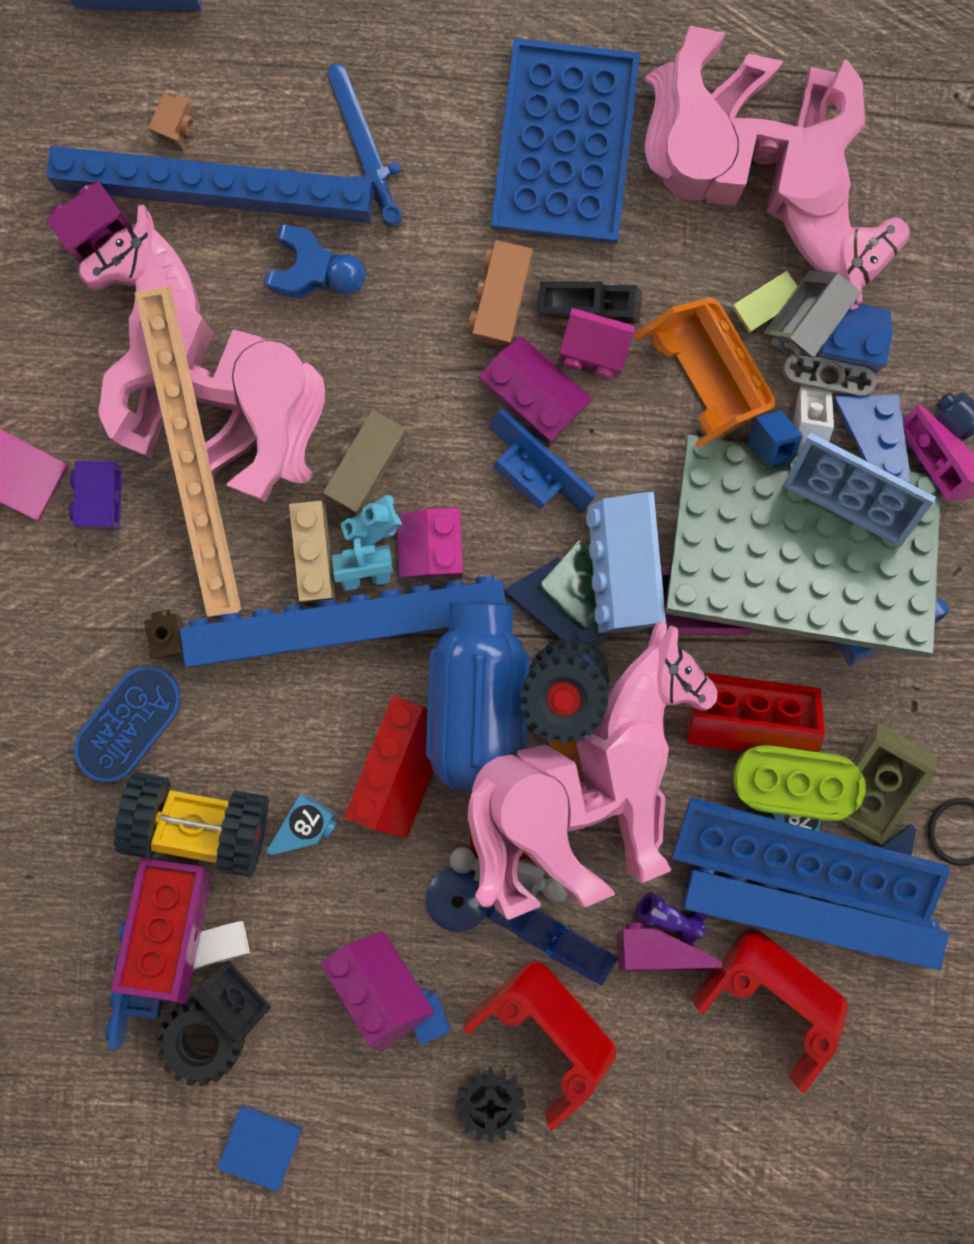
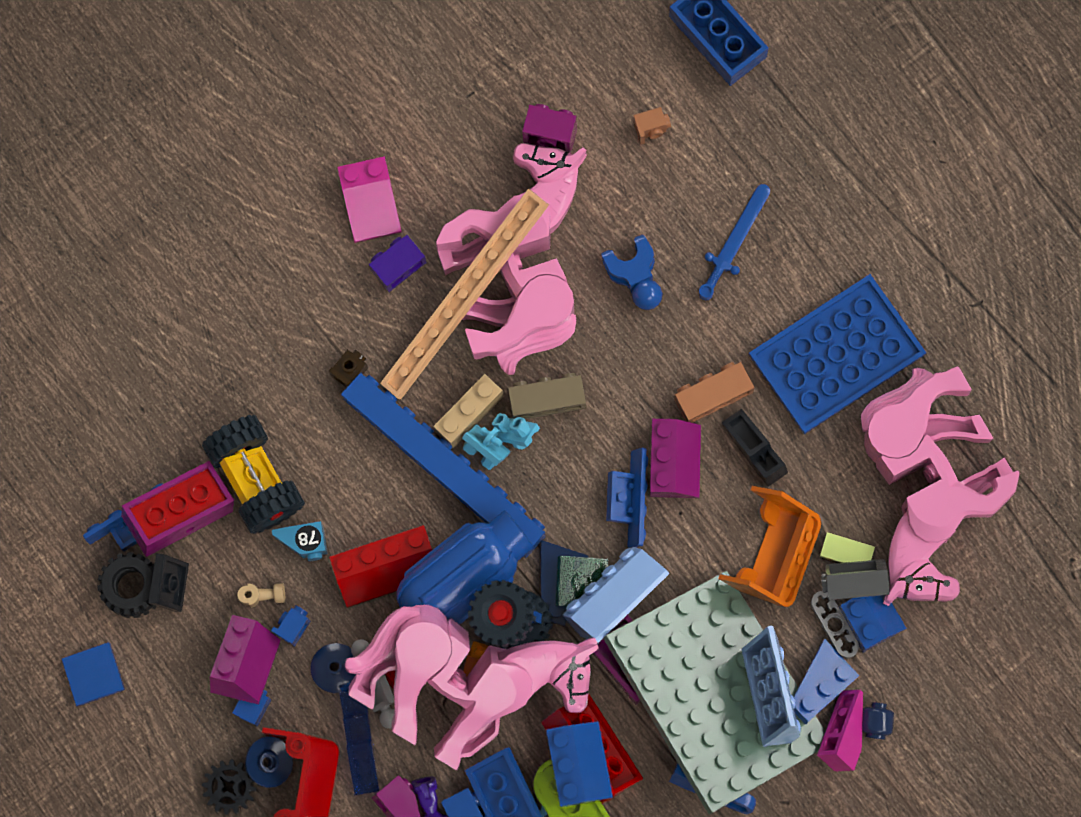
camera: 55 degrees right, 10 degrees down
(127, 724) = (279, 391): tile -> none
(212, 184) = (634, 178): blue brick -> none
(221, 944) = (195, 551): white slope -> none
(315, 923) = (251, 595): none -> tan leg
(380, 909) = (292, 625): none -> blue brick
(430, 543) = (532, 475): dark pink slope -> none
(512, 1053) = (279, 762): none -> dark blue dish
(595, 344) = (730, 470): dark pink slope -> none
(770, 744) = (579, 763): none -> blue slope
(774, 438) = (765, 615): blue brick -> none
(814, 414) = (800, 635): white slope -> none

